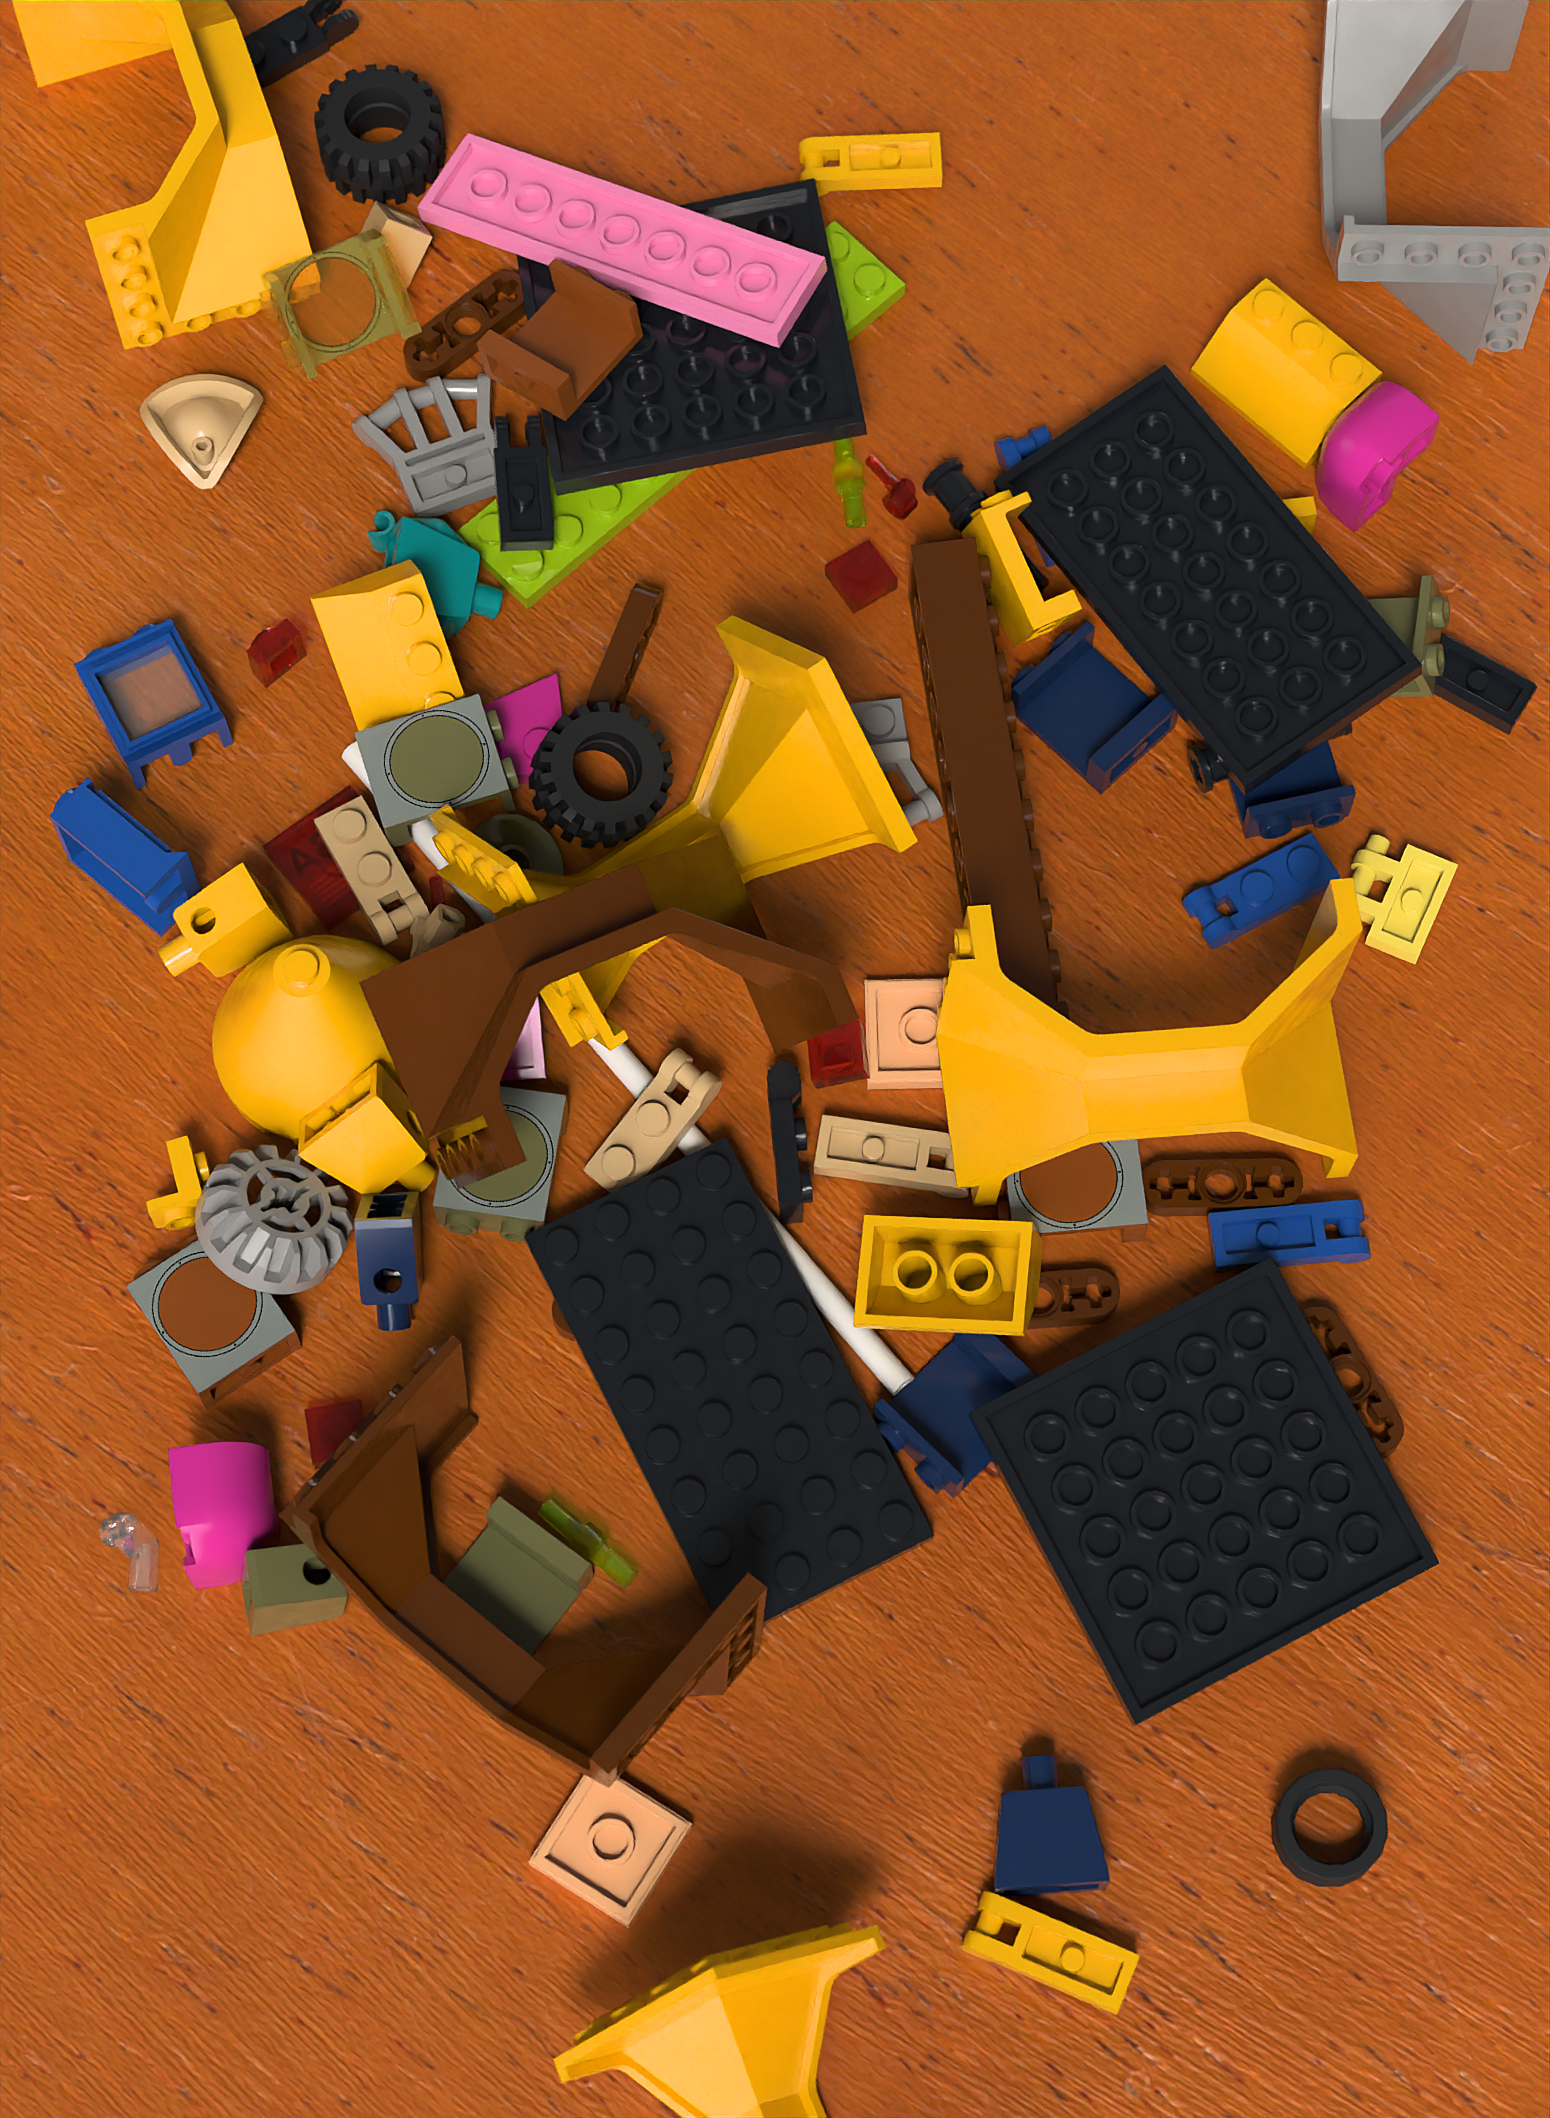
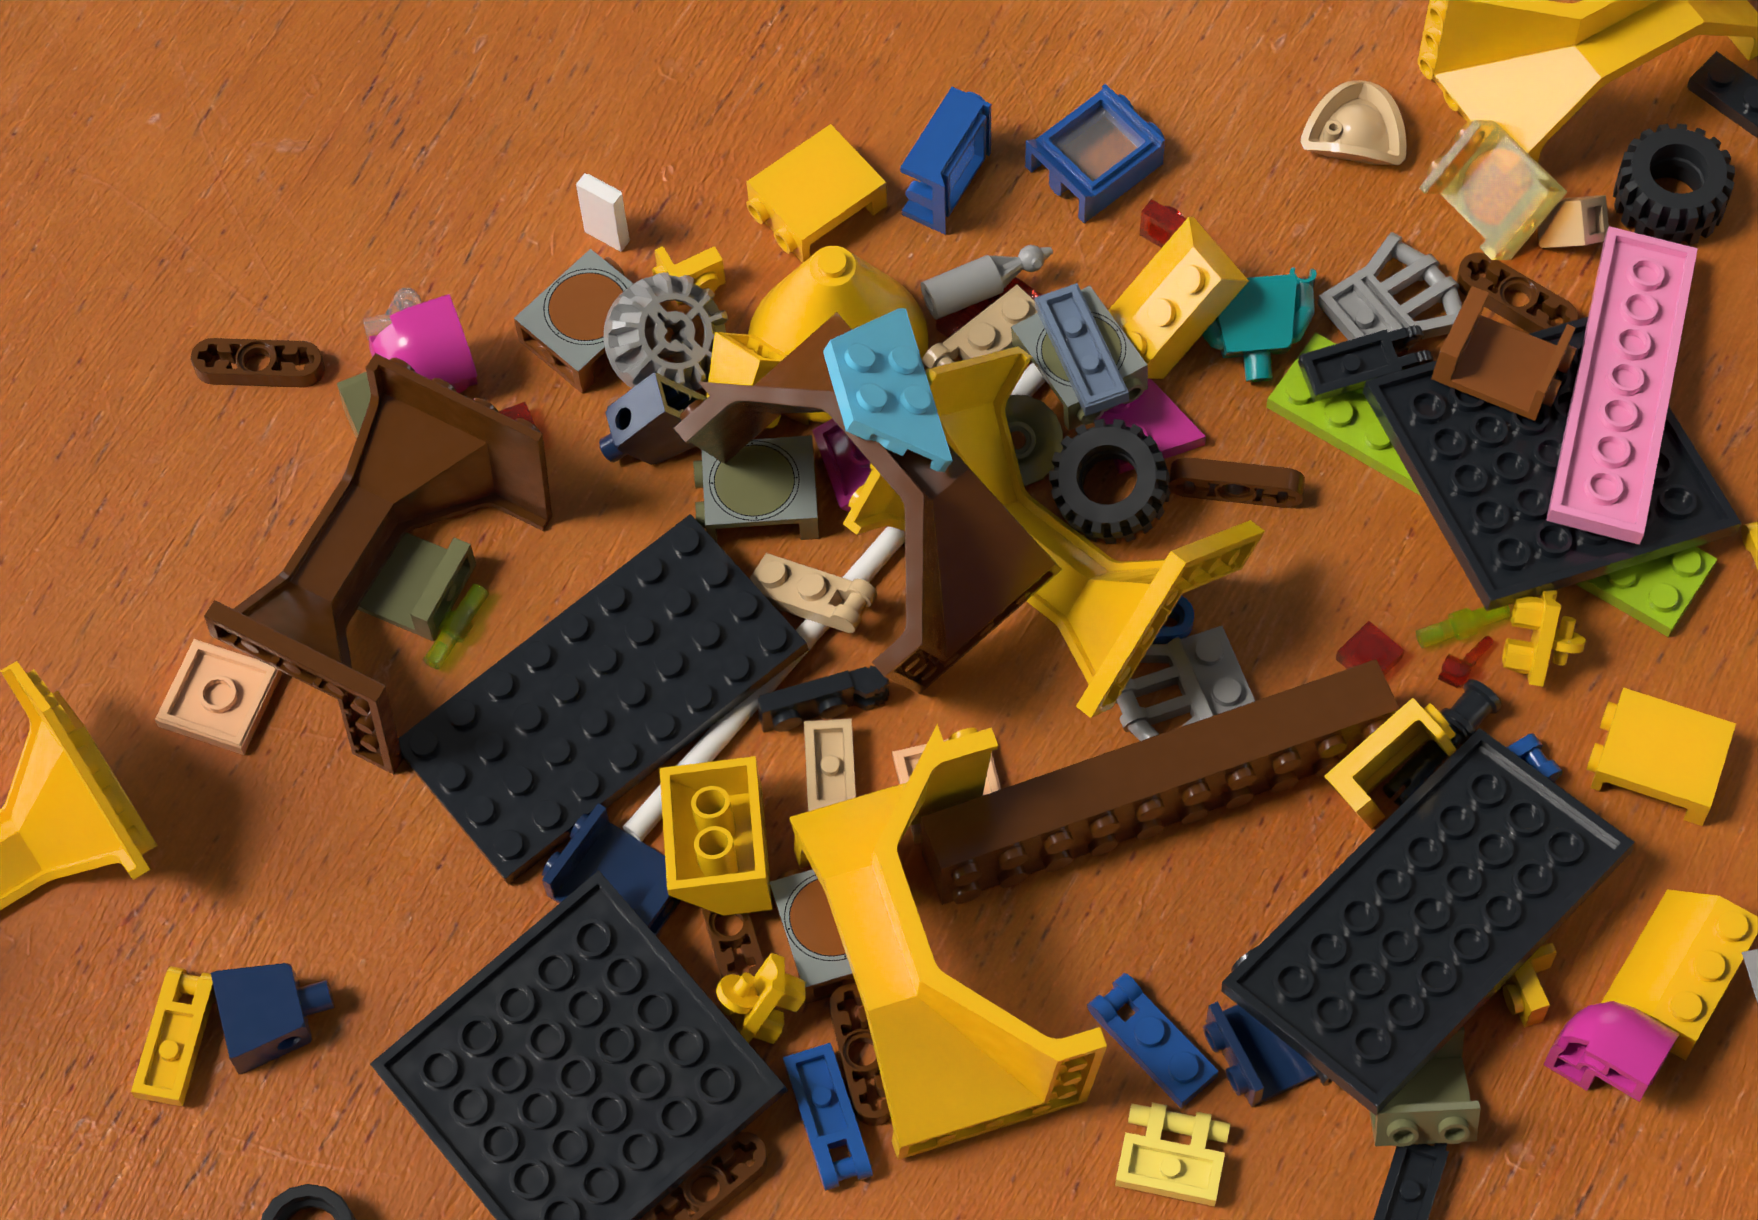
camera: 80 degrees right, 5 degrees down
(78, 1261) = (603, 212): none -> white tile
(115, 1019) = (814, 191): none -> yellow panel
(154, 1777) = (244, 349): none -> reddish brown beam
(226, 925) = (908, 244): yellow torso -> none
(297, 860) = (978, 280): none -> light grey wheel
(441, 756) = (1081, 349): none -> sand blue tile
(528, 917) = (886, 388): none -> medium azure wing
(839, 1056) = (909, 721): clear red plate -> none
(899, 392) = (1541, 616): none -> yellow hips
(1048, 328) = (1662, 752): none -> yellow panel
(1089, 710) = (1288, 857): dark blue panel -> none
(1152, 1268) = (752, 999): none -> yellow hips

